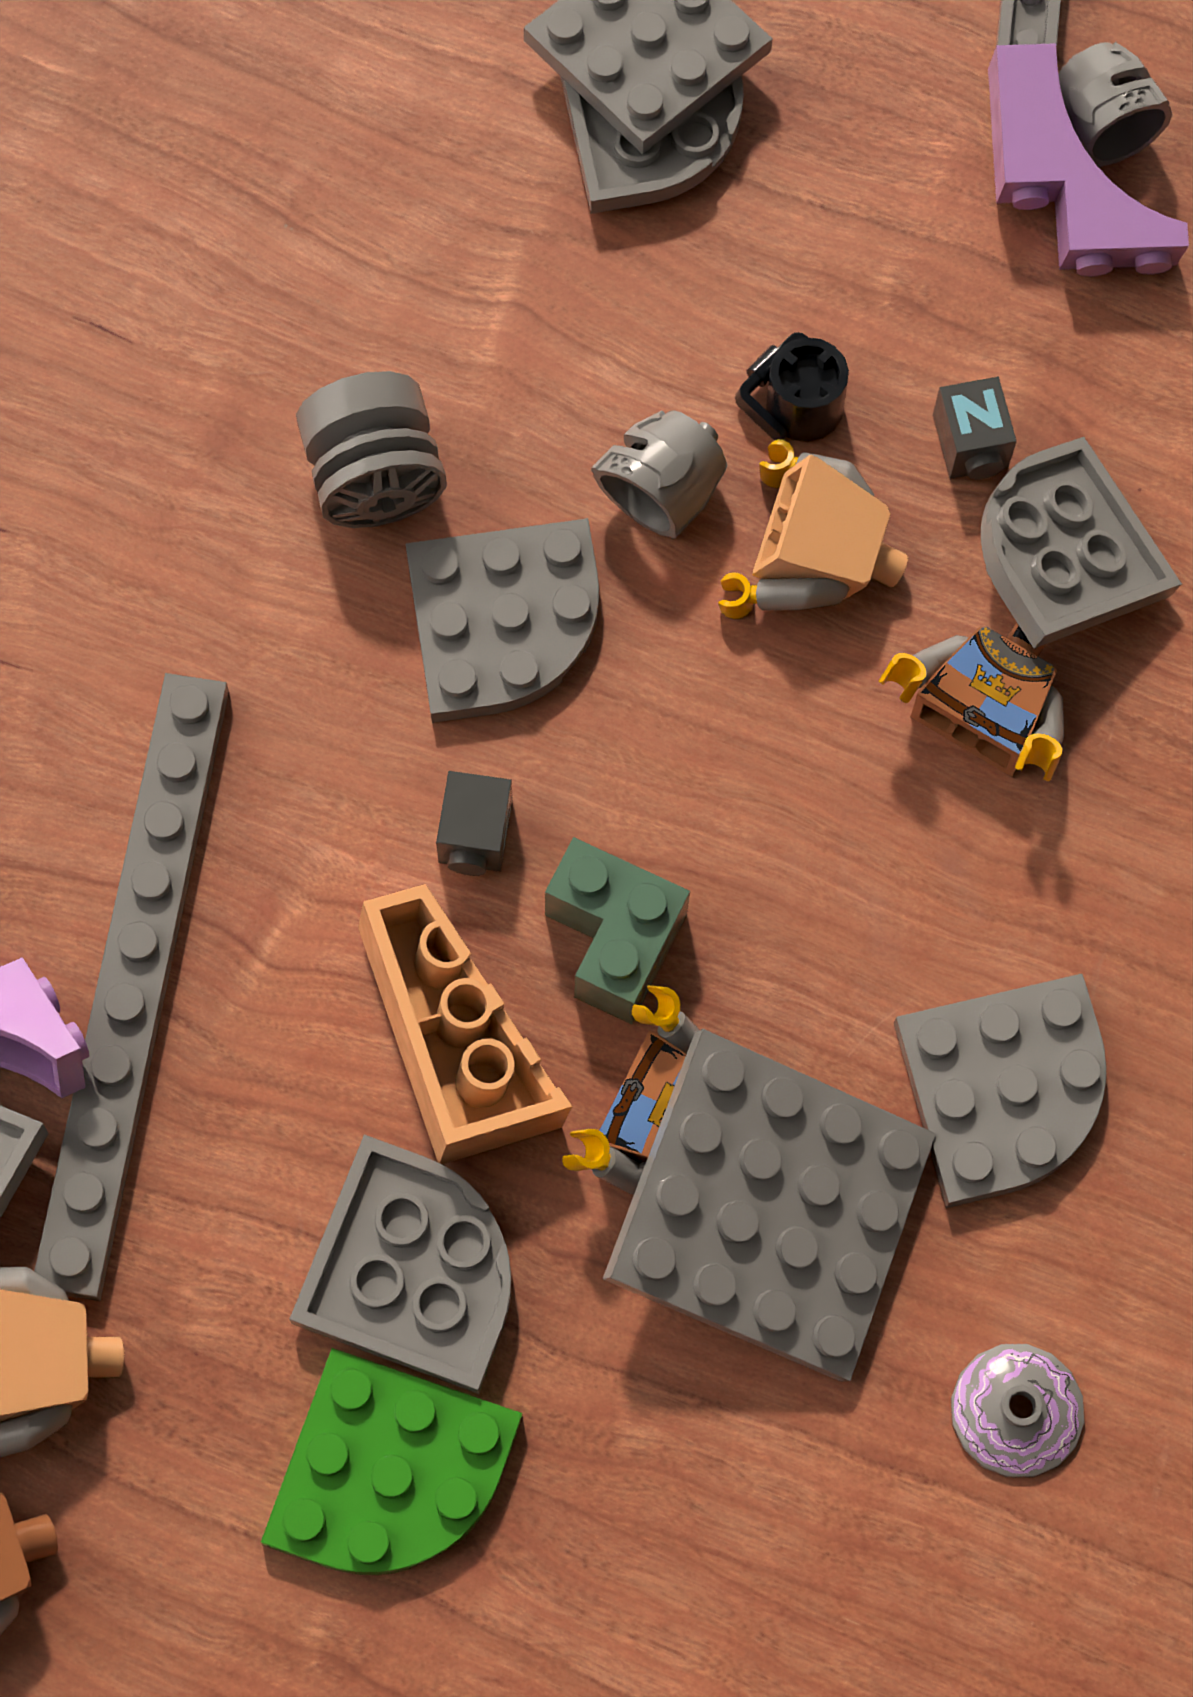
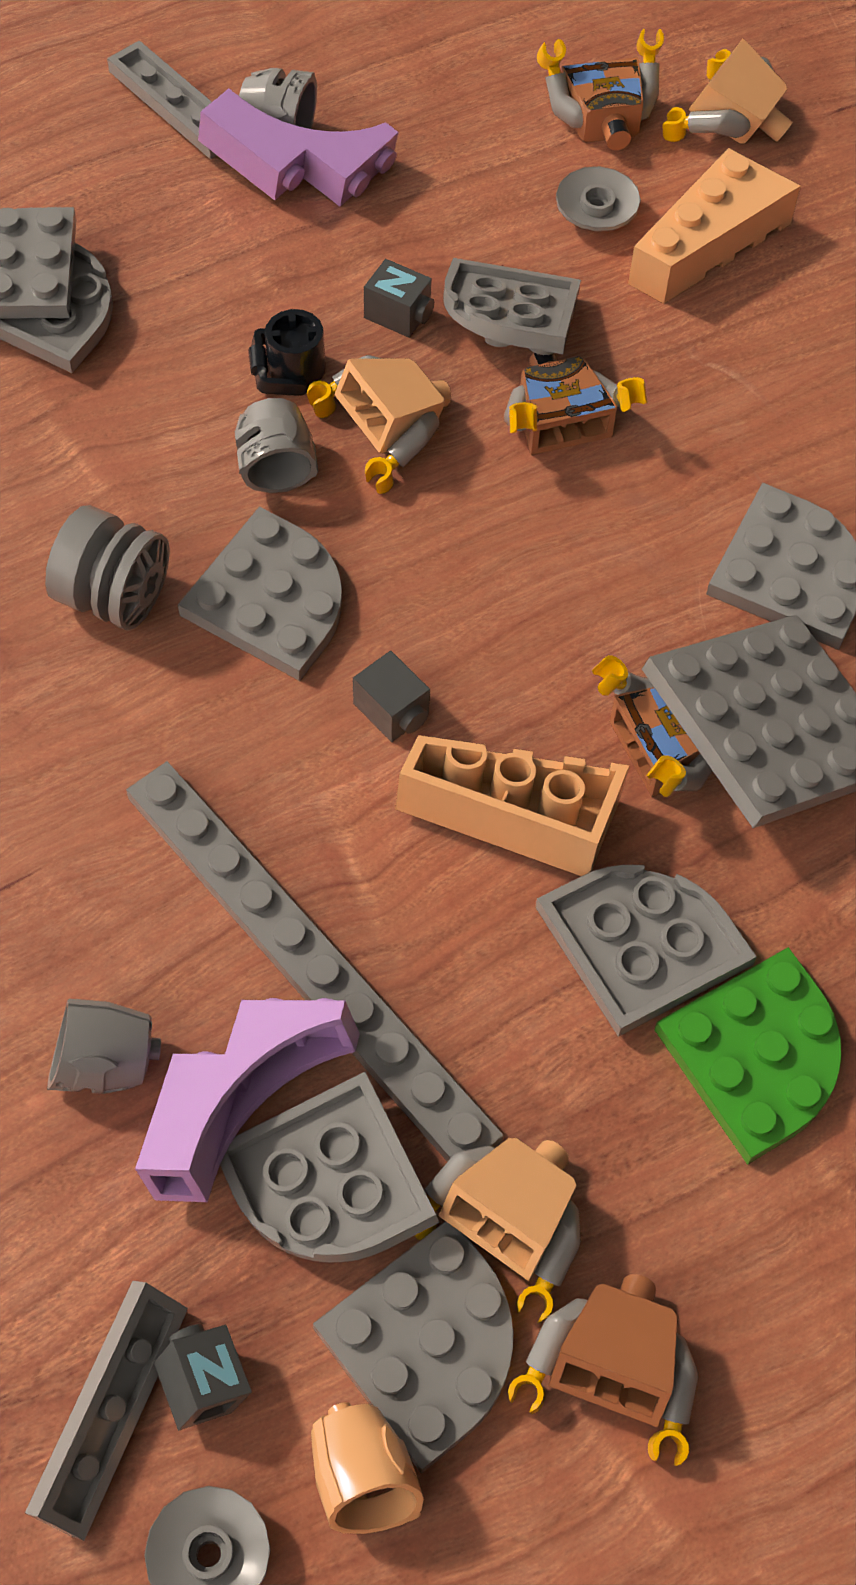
camera: 50 degrees left, 10 degrees down
(626, 913) = (531, 663): sand green brick -> none

